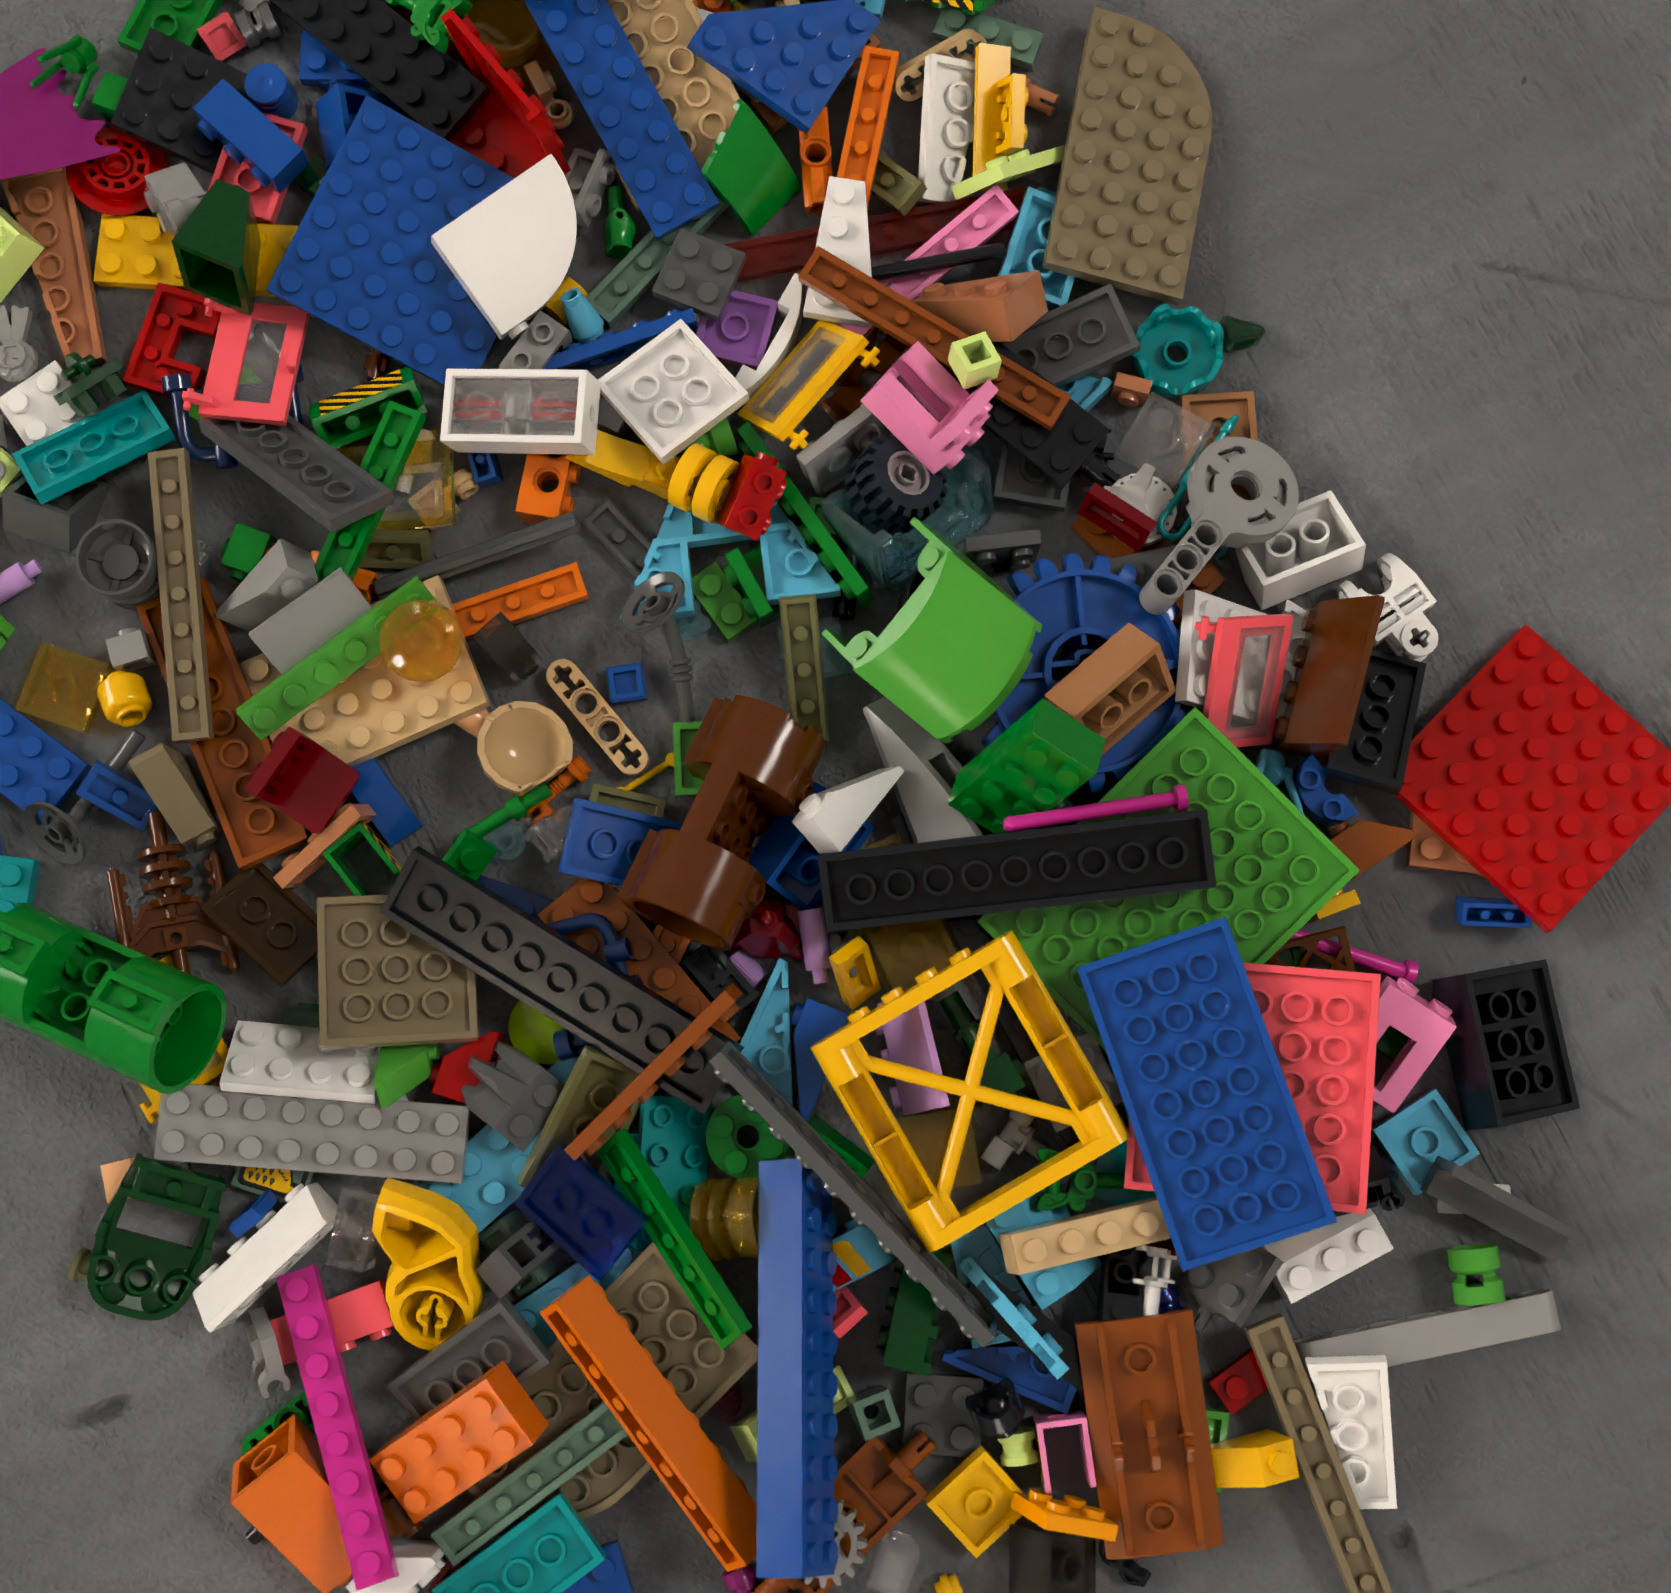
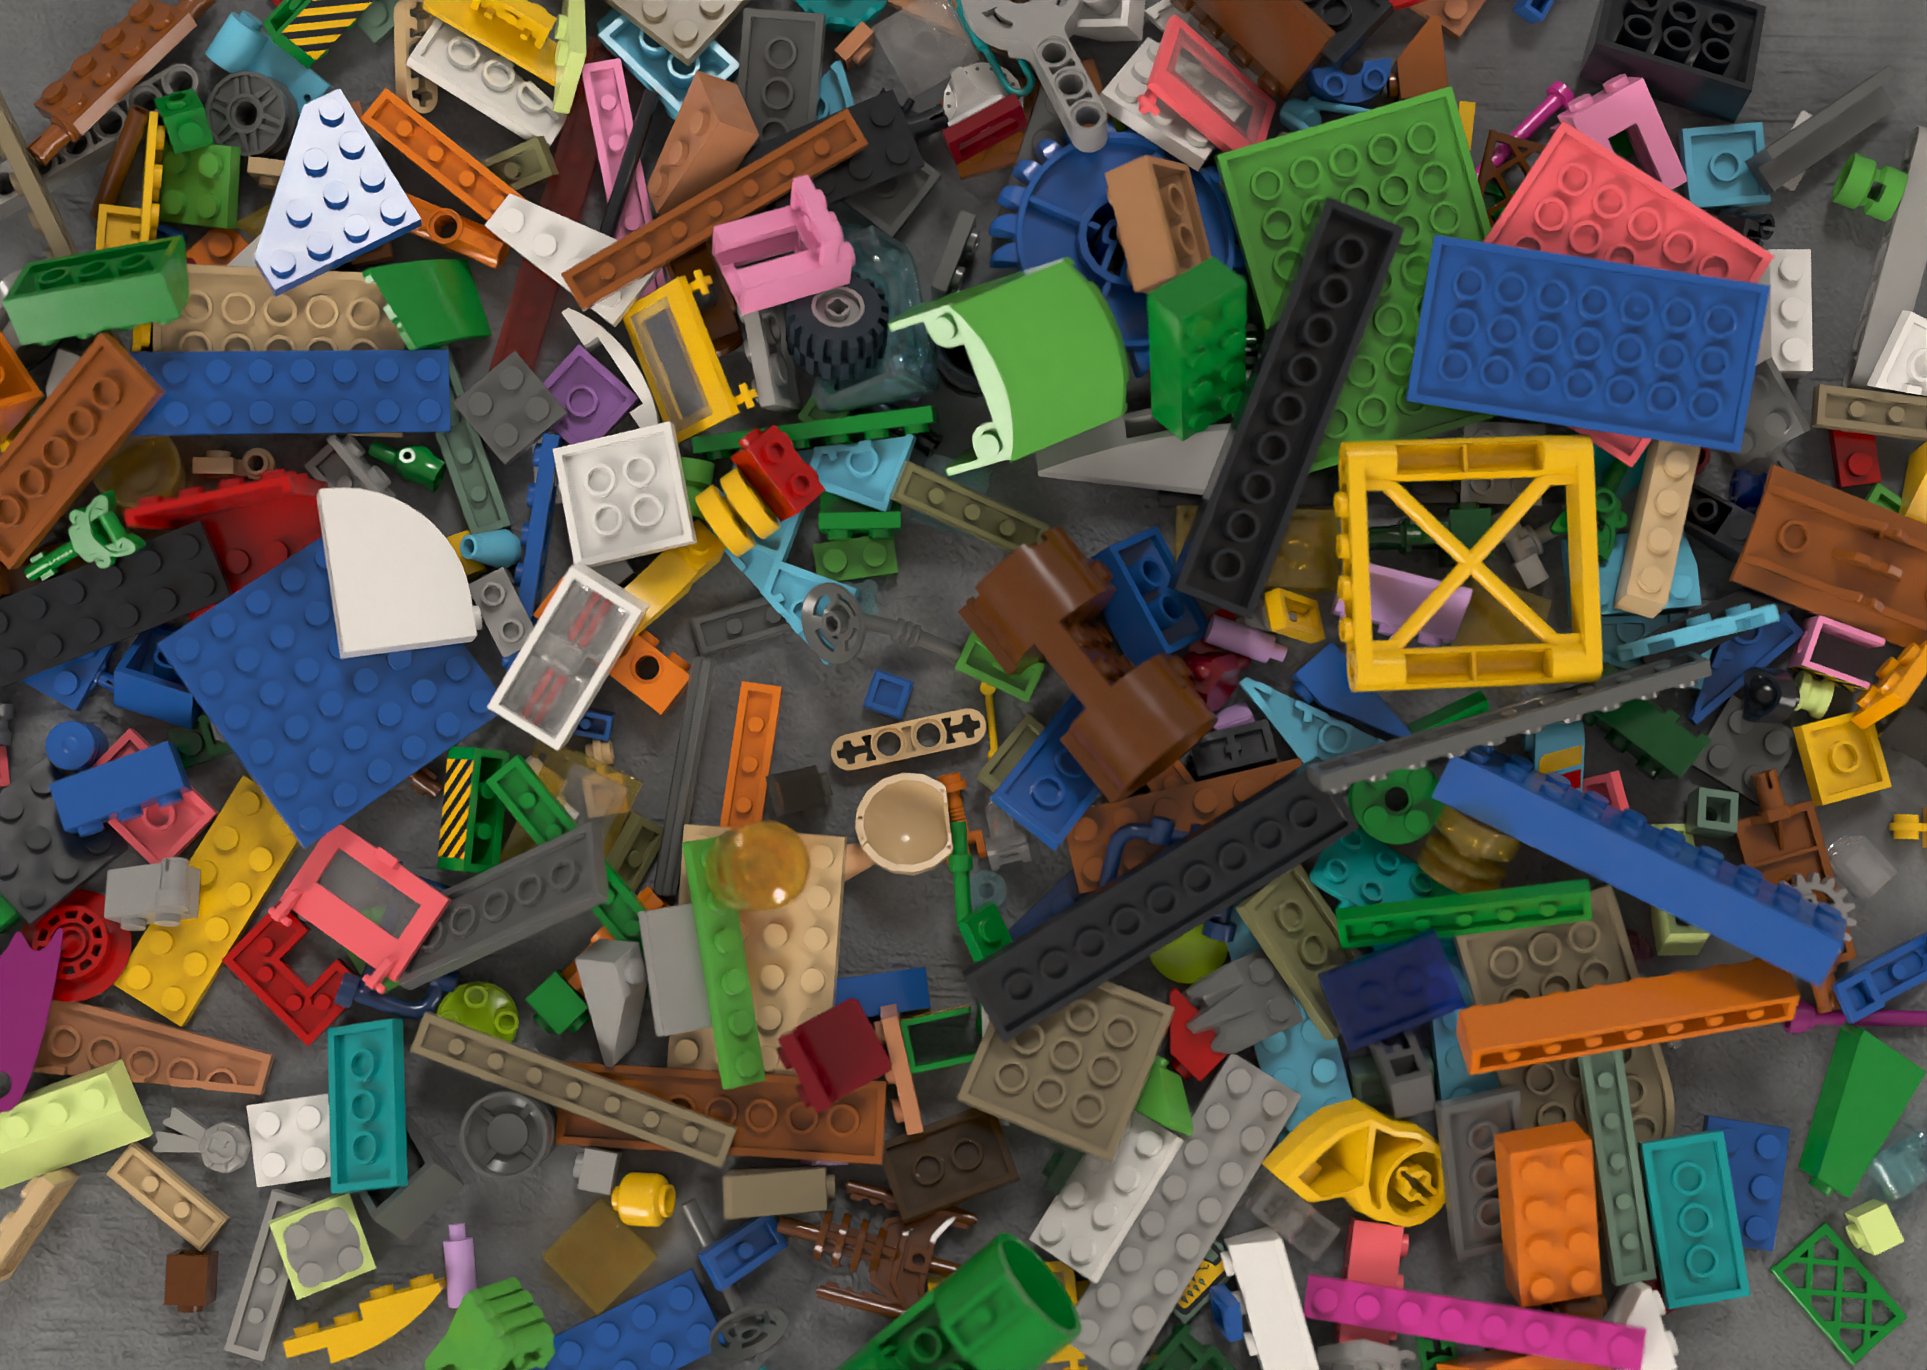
camera: 65 degrees left, 5 degrees up
(78, 394) = (290, 1078): dark green hips -> none
(214, 498) = (482, 1008): none -> lime dish
(221, 248) = (234, 874): dark green slope -> none
(667, 1062) = (1297, 834): dark orange plate -> none
(837, 813) = (1136, 545): white slope -> none
(974, 360) = (759, 174): yellowish green plate -> none
(1153, 1283) = (1729, 487): white piece -> none
(1176, 798) = (1295, 220): dark pink bar -> none

